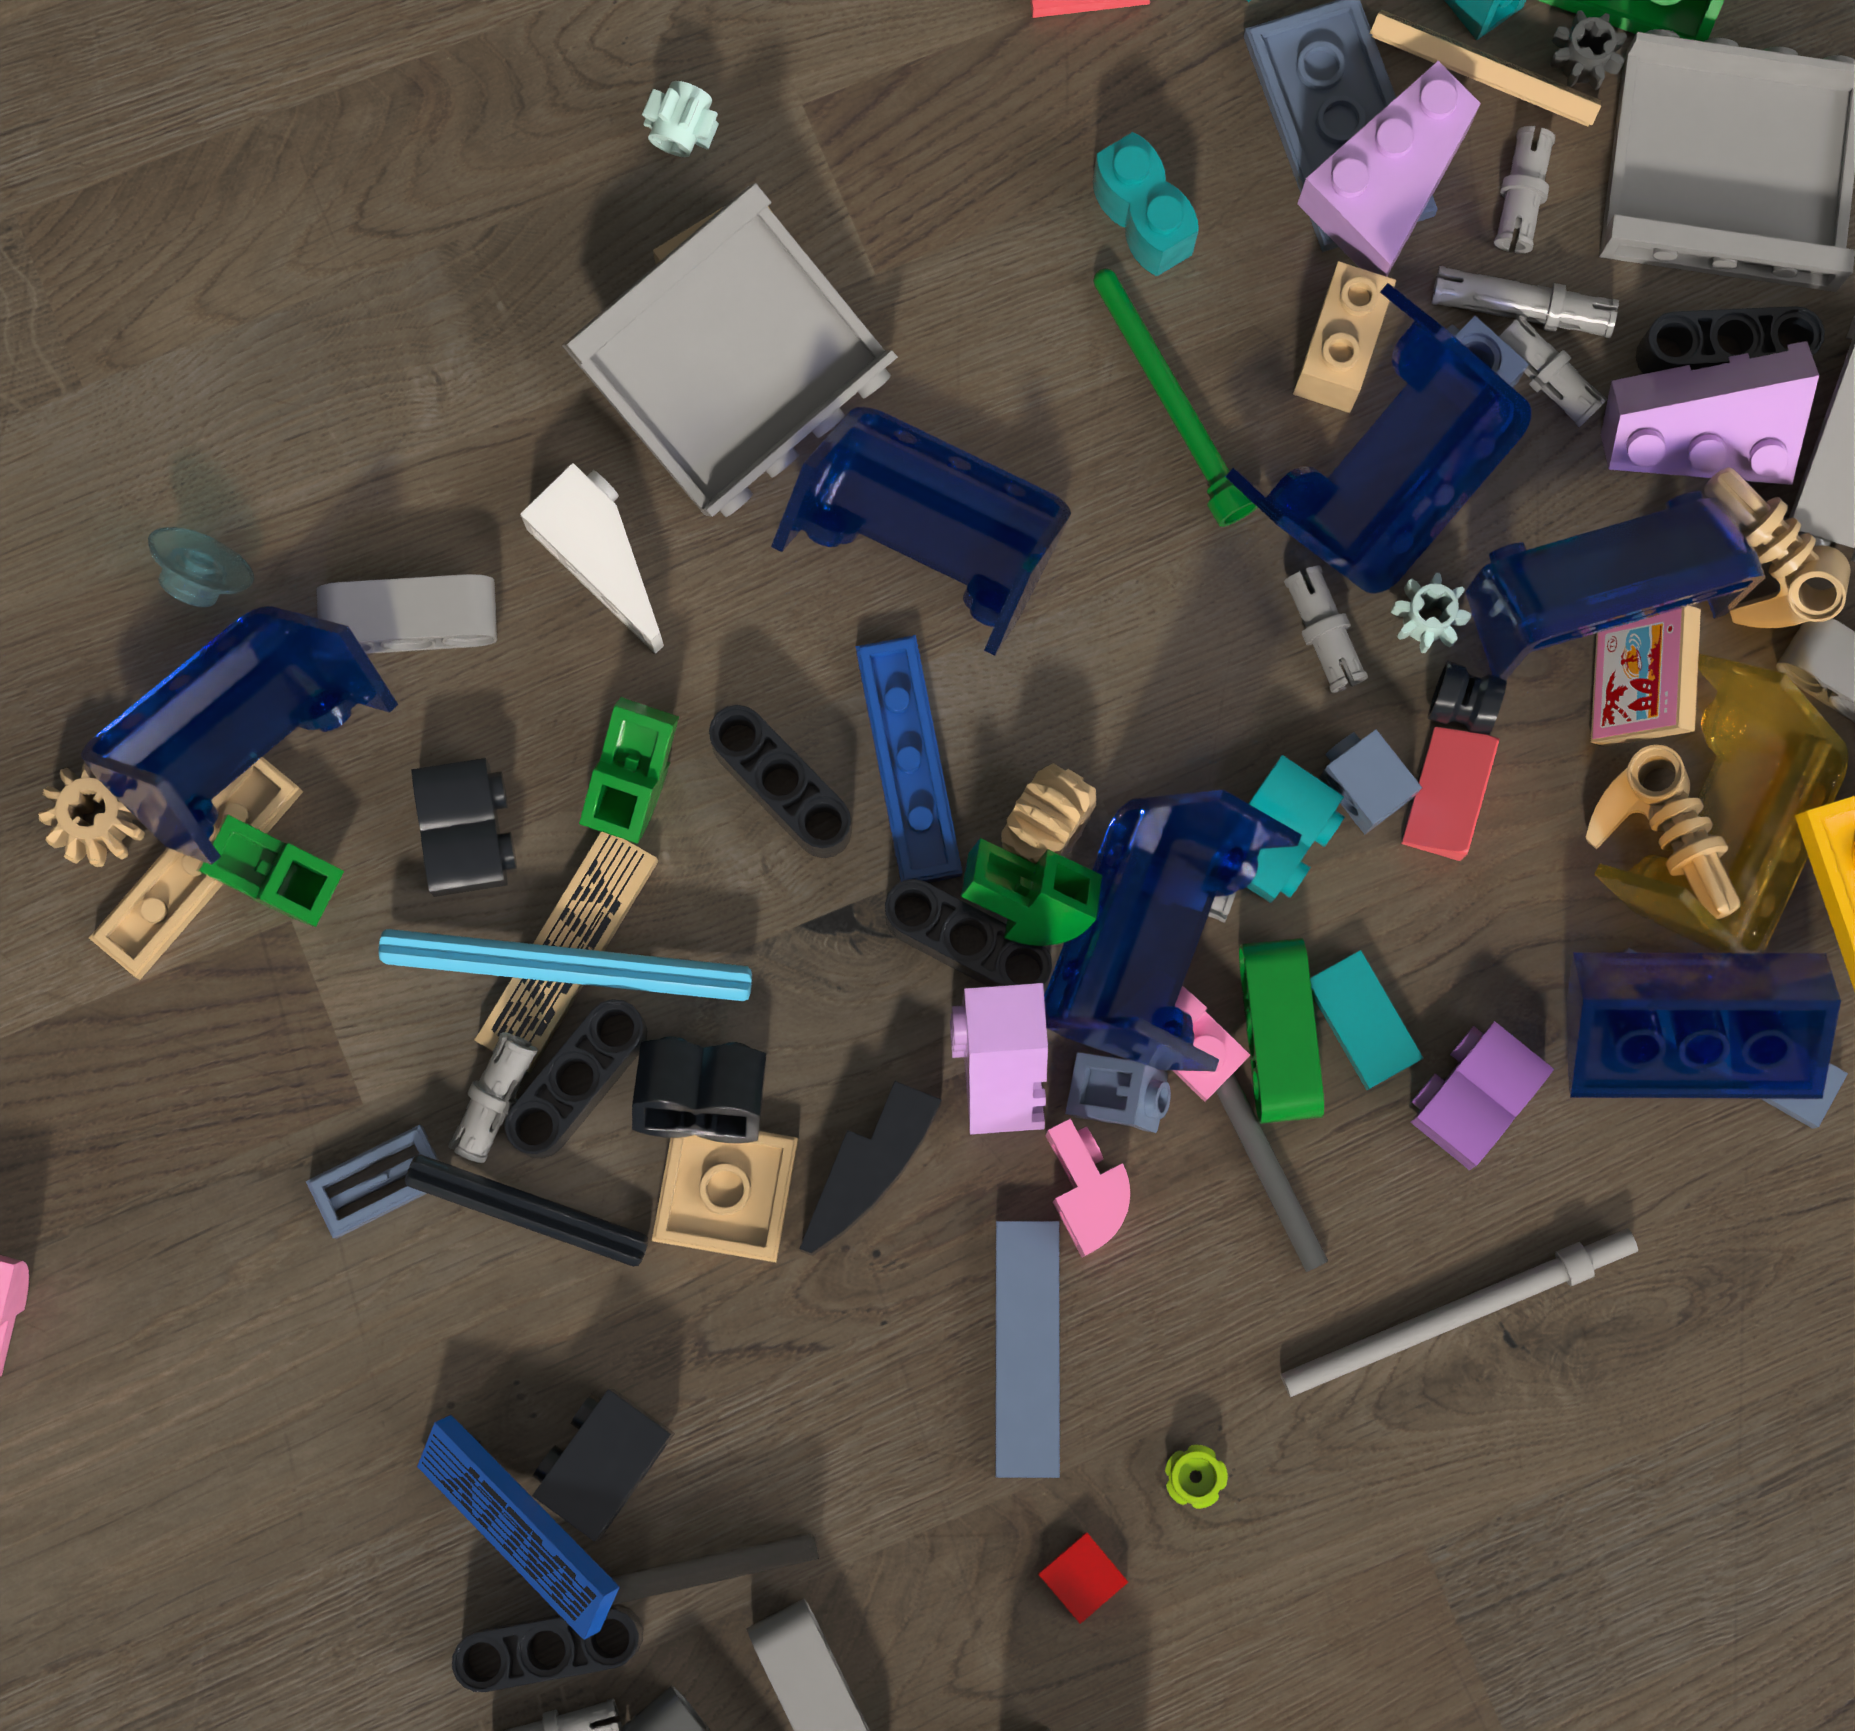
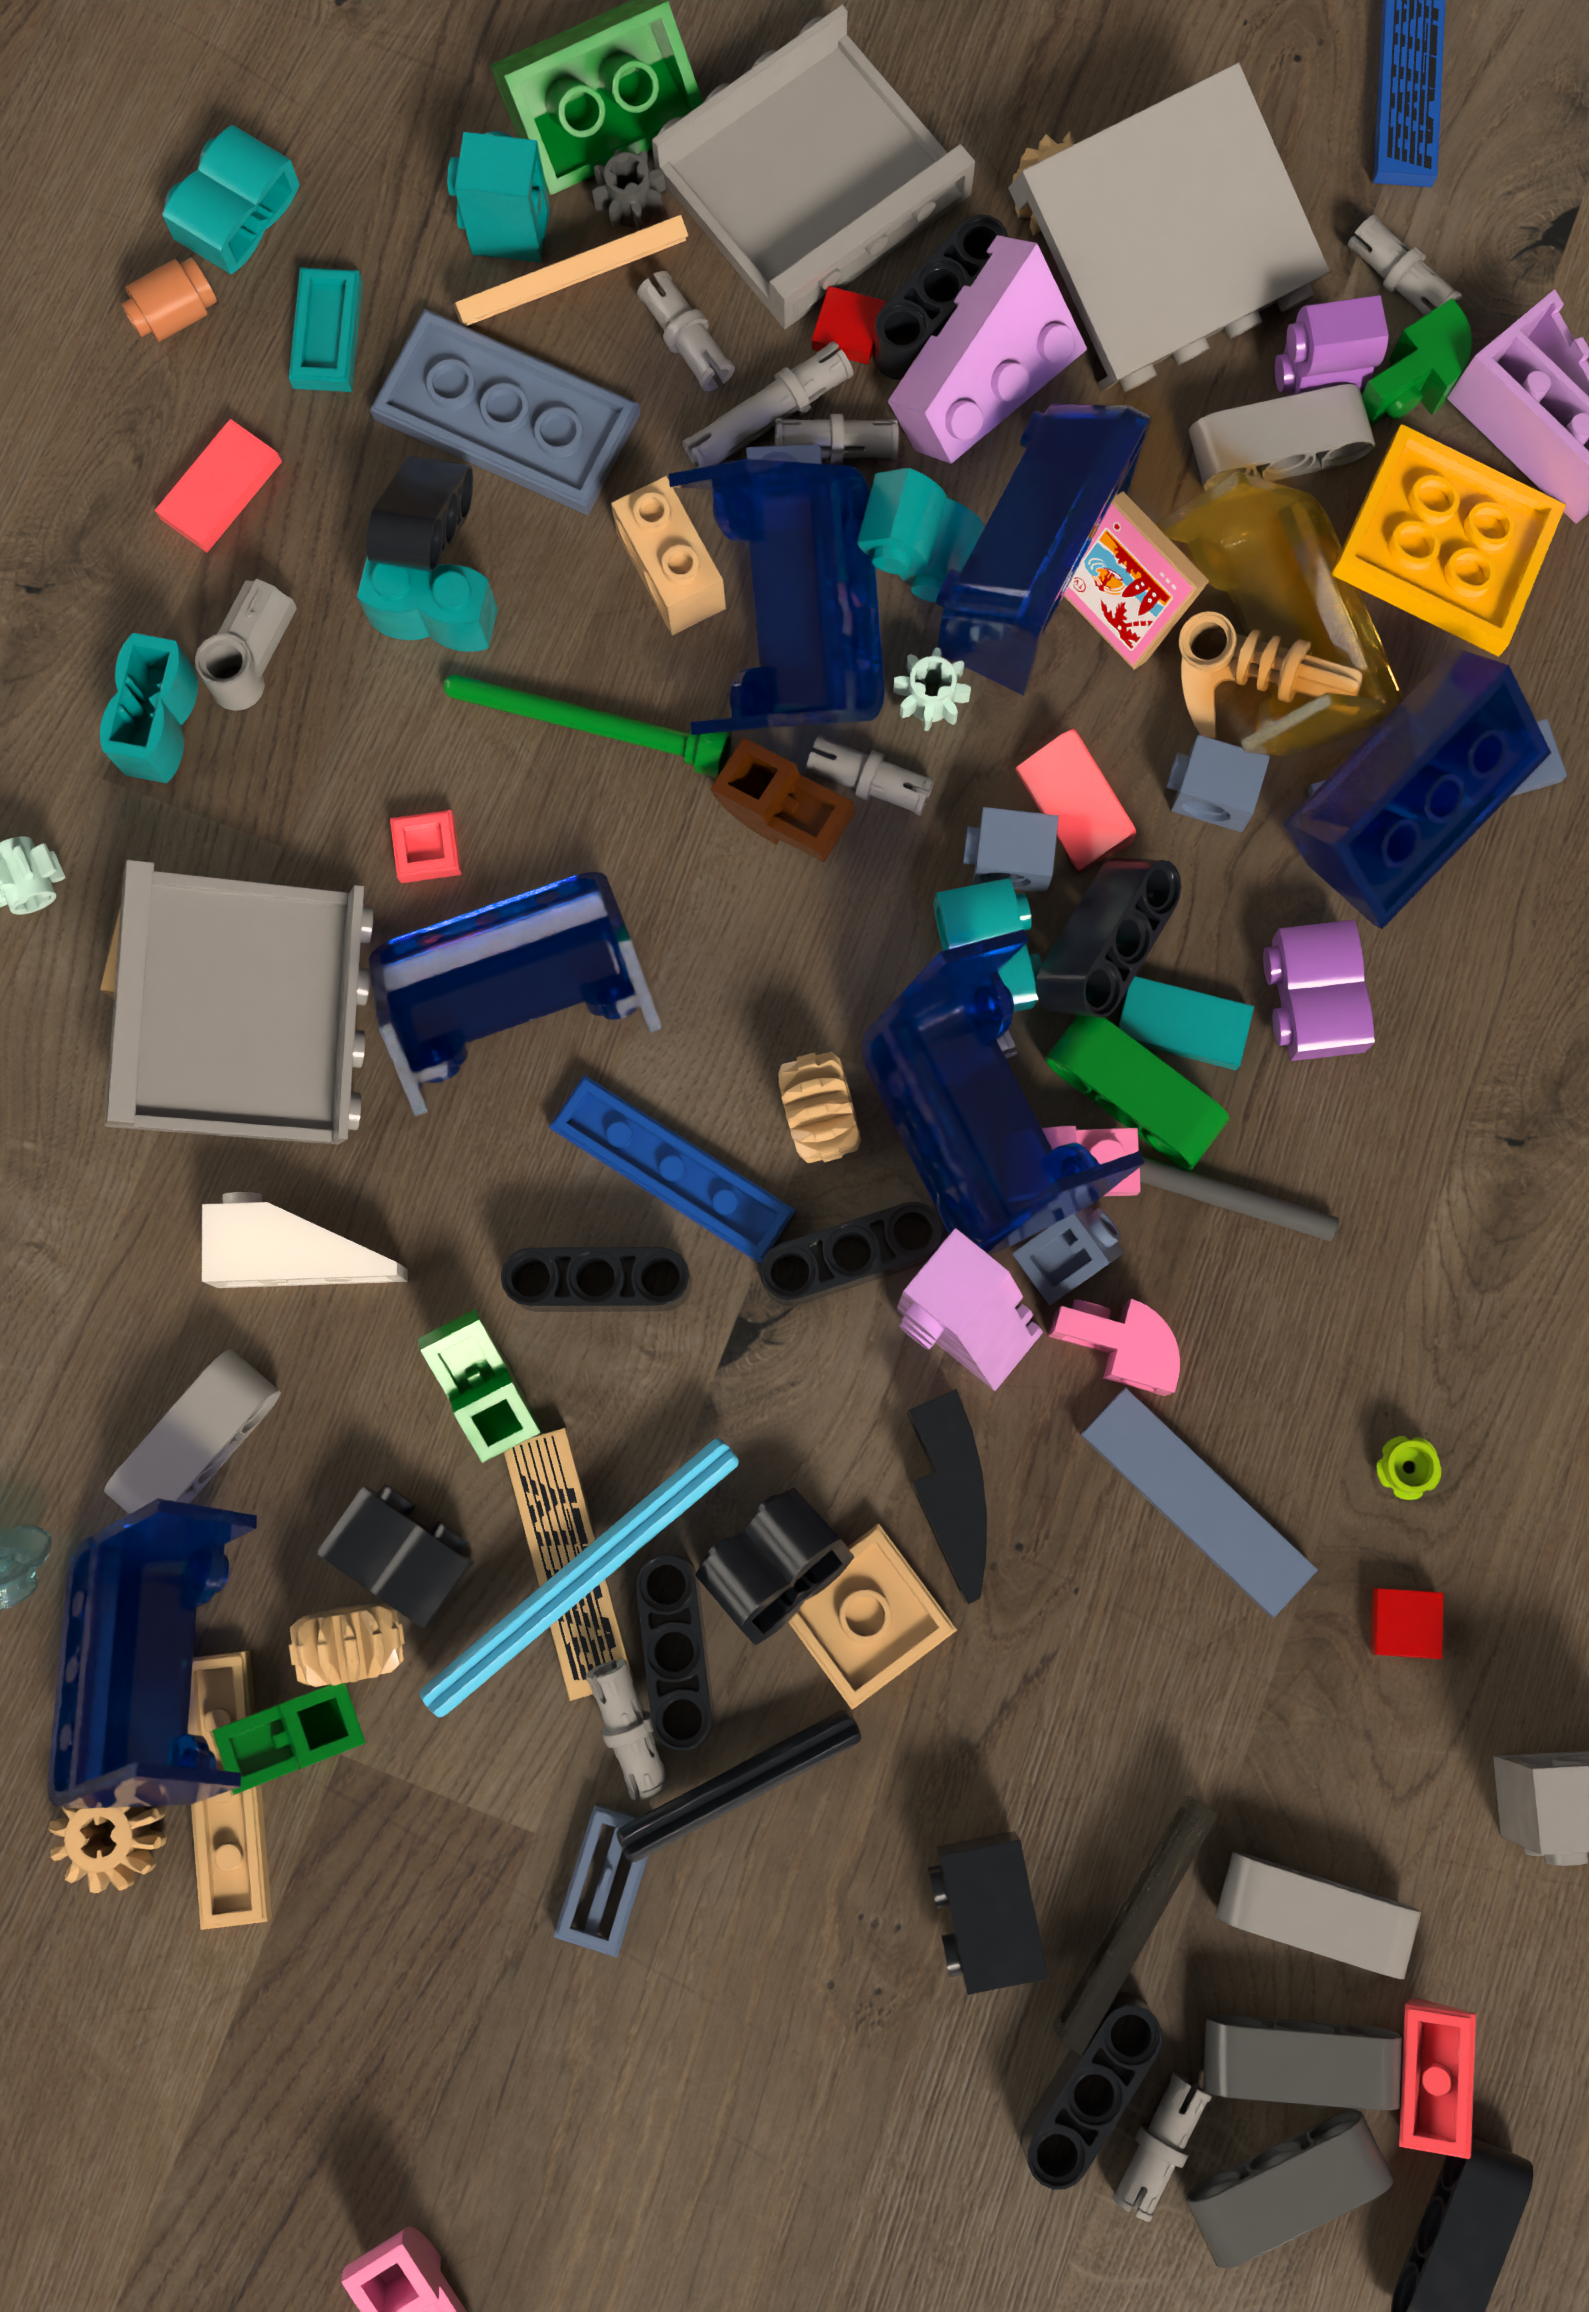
camera: 40 degrees left, 0 degrees up
(369, 850) = (346, 1644): none -> tan gear
(518, 1527) = (981, 2027): blue tile -> none
(893, 85) = (153, 700): none -> teal brick
(971, 371) = (425, 846): none -> coral tile
(995, 106) = (246, 641): none -> light grey piece
(1040, 900) = (878, 1172): green brick -> none
(1200, 138) = (420, 514): none -> black beam
(1243, 585) = (780, 802): none -> reddish brown brick
(1369, 906) = (1108, 937): none -> black beam
(1387, 172) = (581, 409): lavender wedge -> none
(1480, 704) = (1020, 723): black wheel -> none
(1531, 491) = (917, 530): none -> teal brick
(1561, 878) = (1217, 783): none -> sand blue brick
(1571, 1265) = (1504, 1046): light grey bar -> none
(1644, 297) = (849, 322): none -> red tile
(1792, 558) = (1146, 392): tan piece -> none

